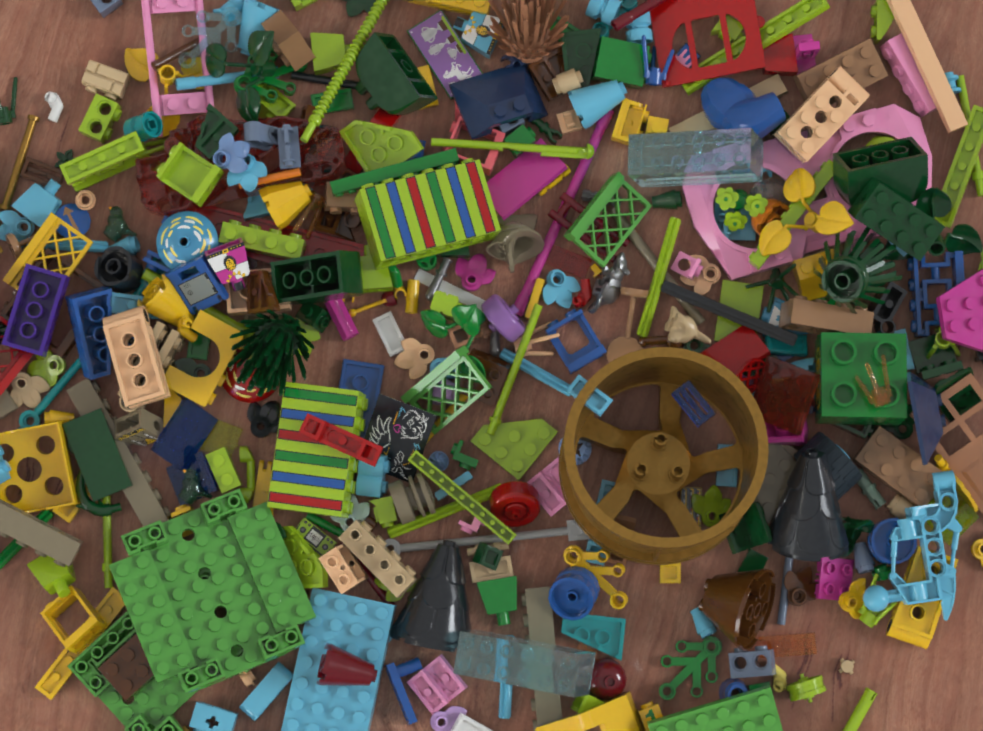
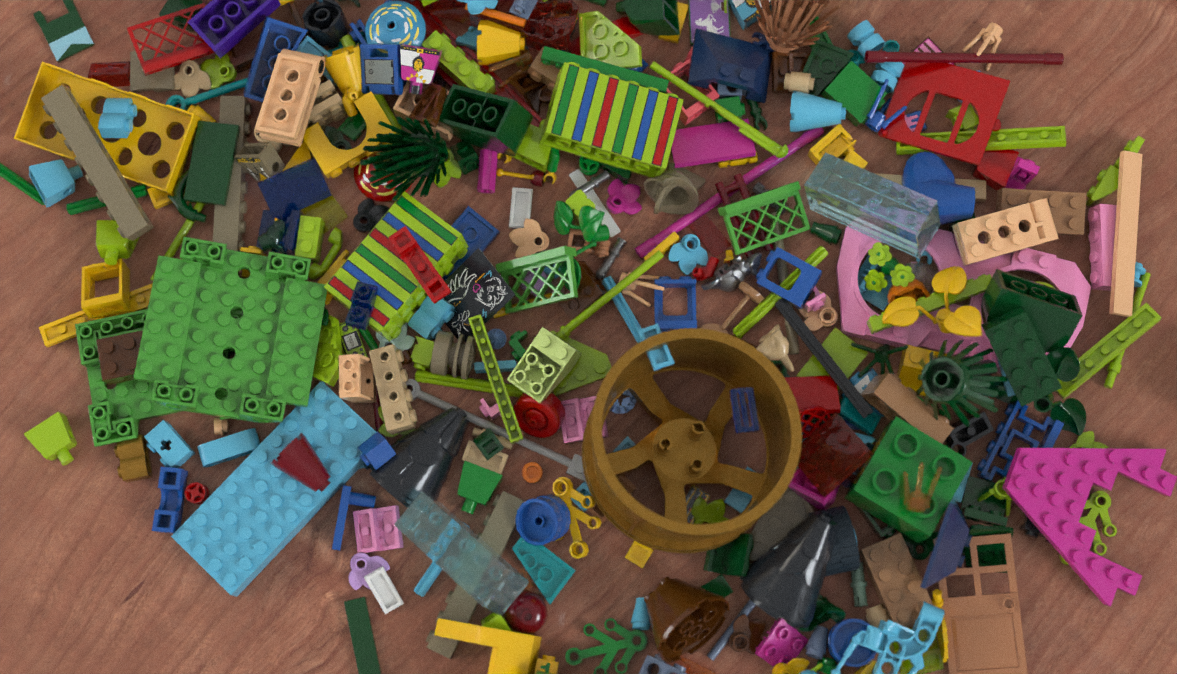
camera: 30 degrees right, 5 degrees down
(130, 244) = (350, 10): medium azure cone -> none
(311, 503) = (362, 305): none -> clear blue slope
(398, 620) = (376, 451): none -> blue brick
(412, 296) = (558, 188): yellow axle -> none
(496, 462) = (544, 365): none -> yellowish green slope
(503, 318) = (624, 248): medium lavender wheel -> none
(539, 557) = (532, 472): none -> orange tile
(568, 122) = (780, 119): light nougat tile -> none
(676, 260) = (804, 284): none -> blue window

